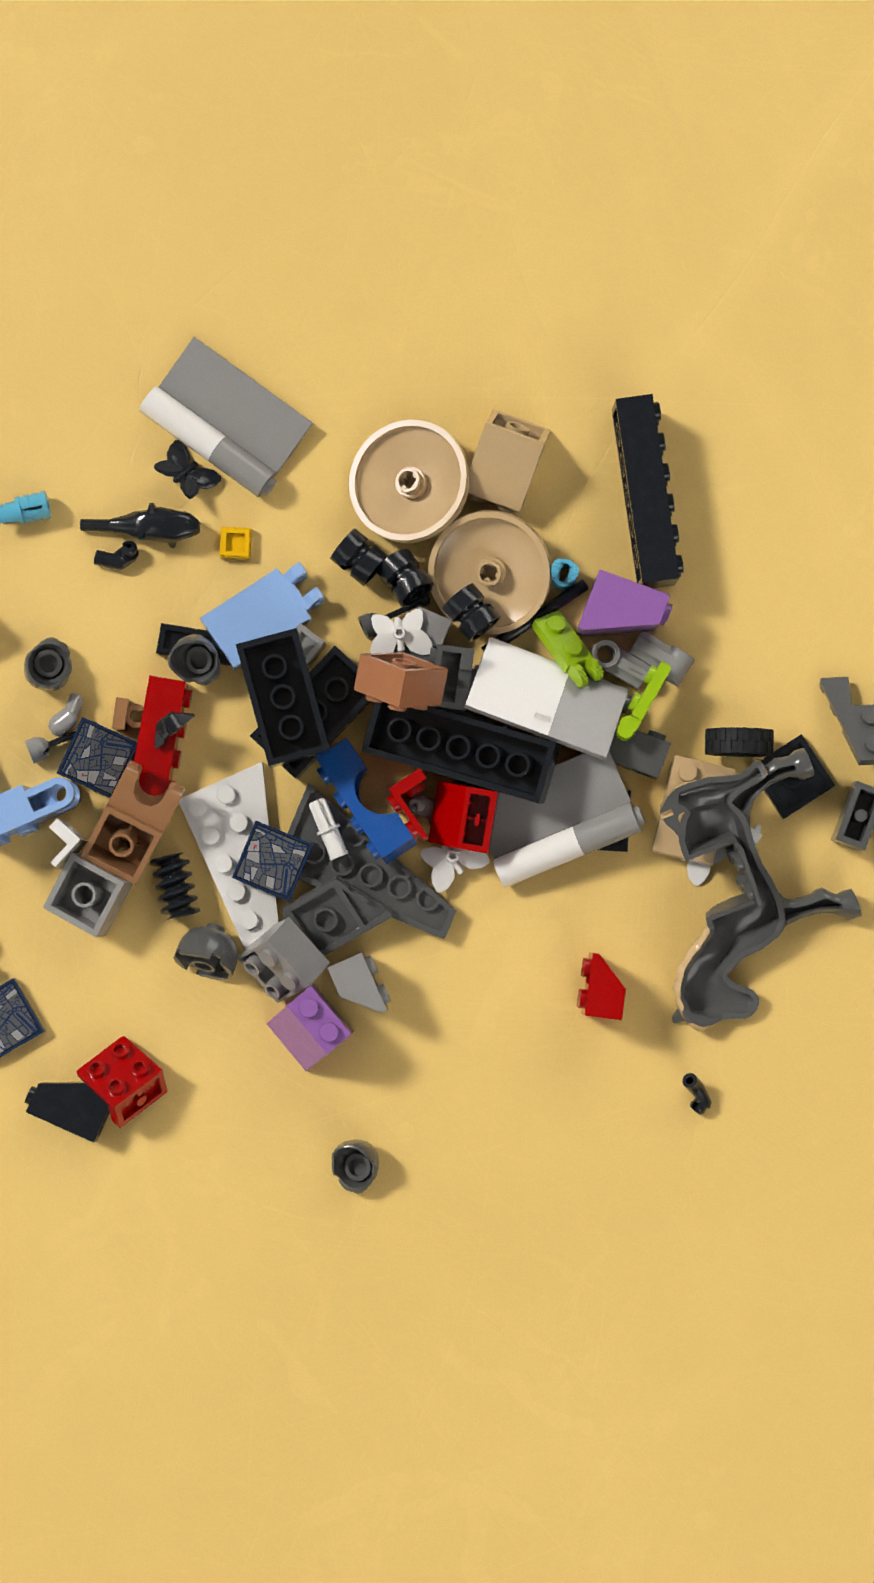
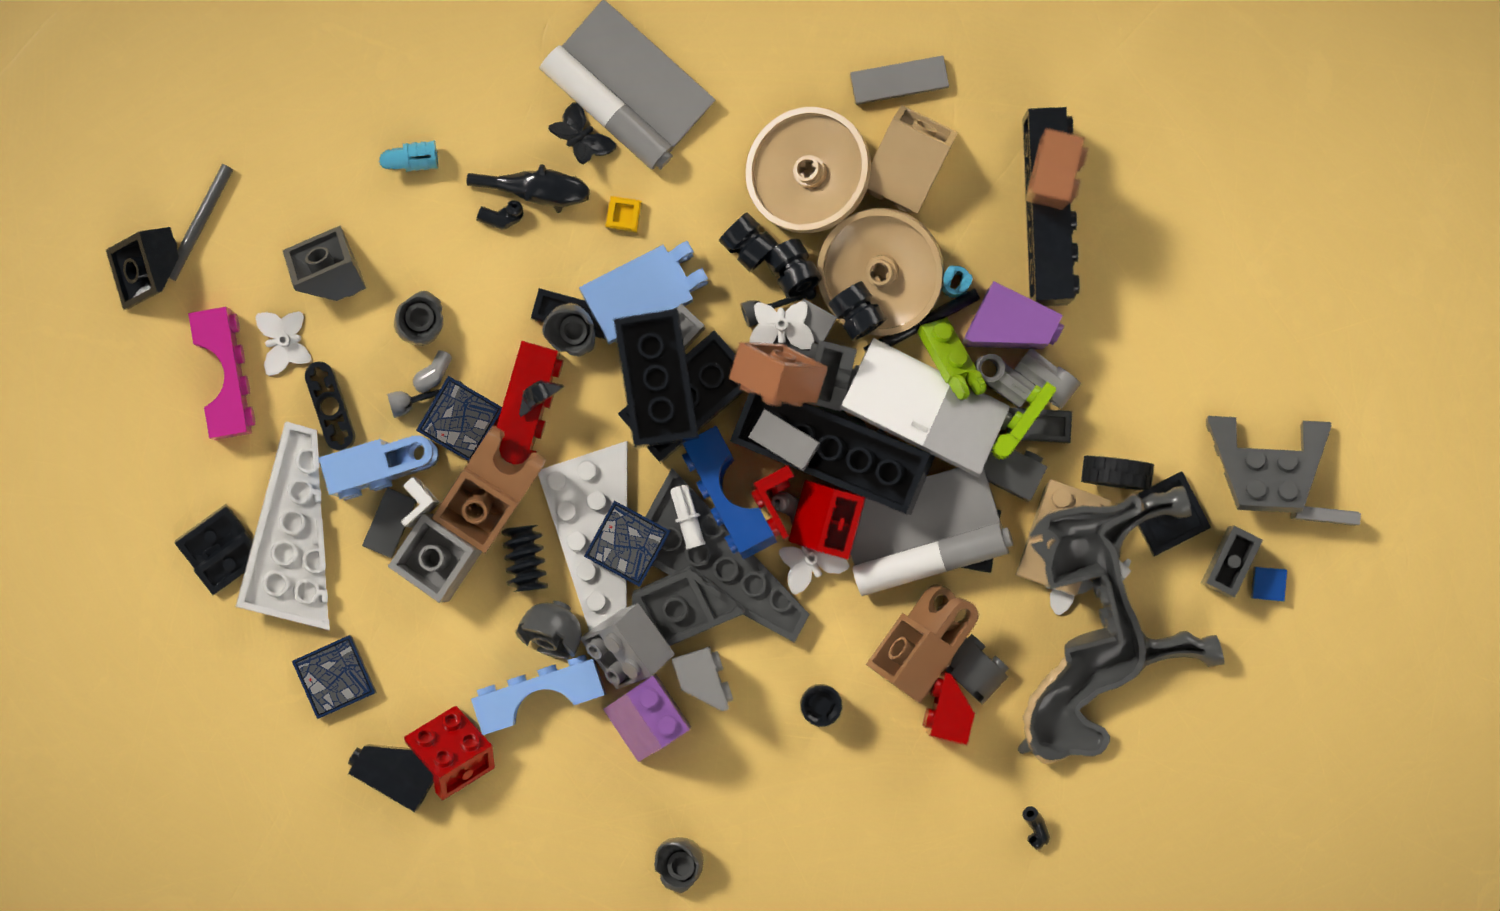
camera: 10 degrees right, 0 degrees up
(37, 869) = (387, 526): none -> dark grey tile
(123, 714) = (490, 377): medium nougat tile -> none
(166, 1032) = (499, 707): none -> light blue arch
(413, 744) = (784, 440): none -> light grey tile
(476, 997) = (821, 705): none -> black wheel
(488, 385) = (899, 80): none -> light grey tile
(569, 926) = (923, 642): none -> medium nougat brick
(620, 945) = (976, 670): none -> dark grey cylinder
(647, 454) = (1055, 169): none -> nougat brick
(667, 705) = (1048, 426): none -> dark grey tile

